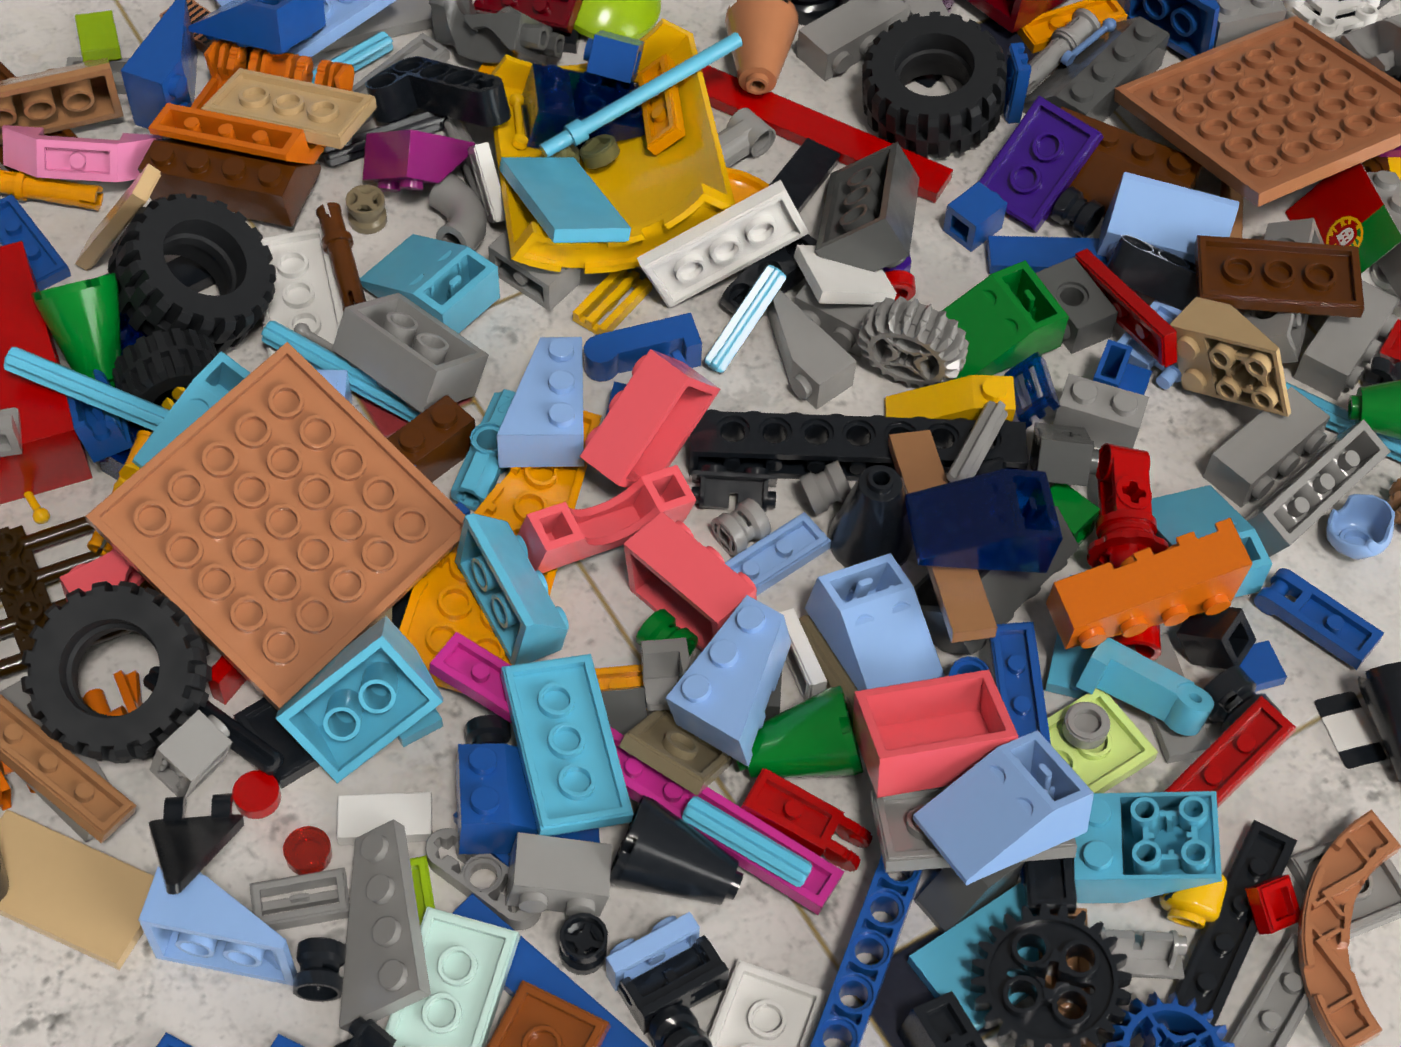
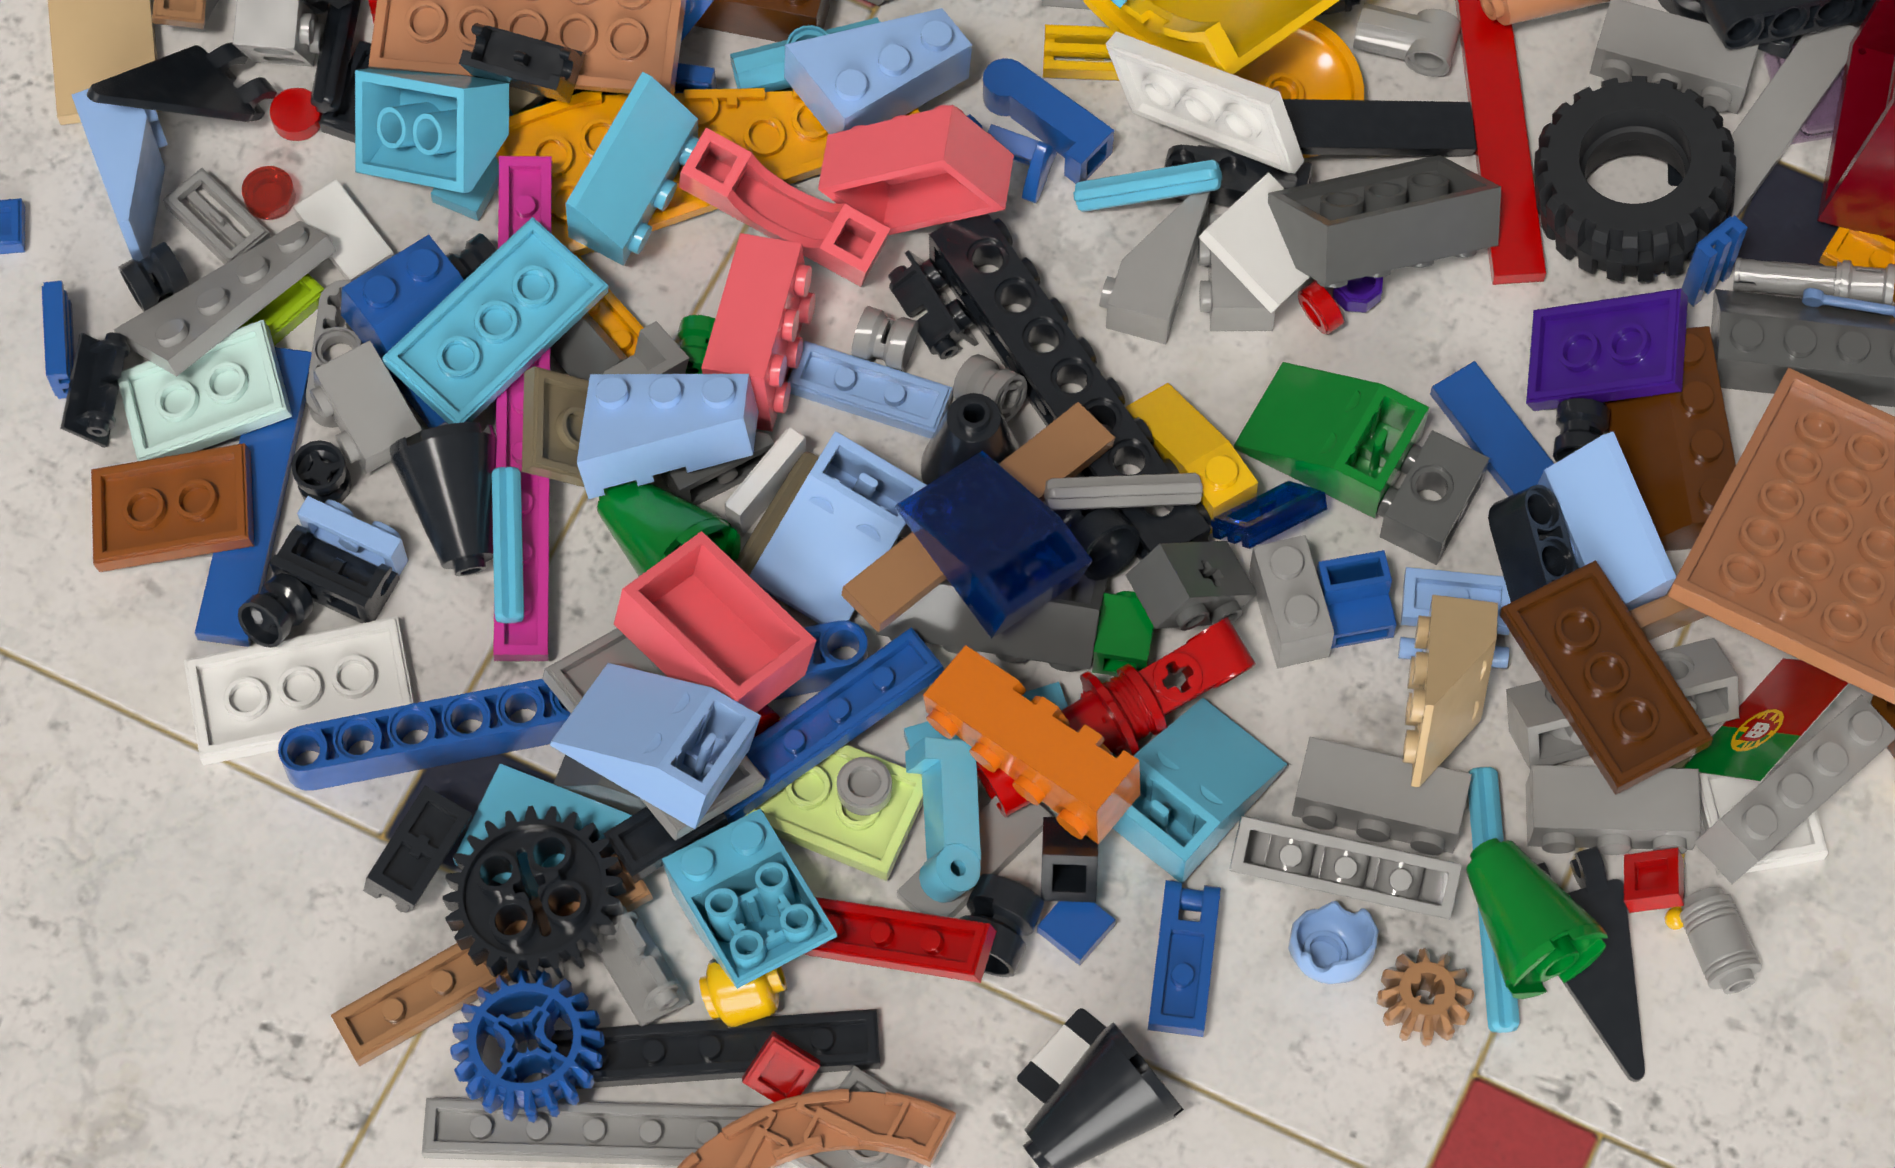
camera: 60 degrees right, 10 degrees up
(378, 596) = (523, 62): none -> black hinge
(806, 819) = (579, 576): red hinge -> none
(912, 342) = (1223, 358): light grey gear -> none
(974, 216) = (1490, 331): blue brick -> none
(1133, 312) = (1452, 546): red tile -> none

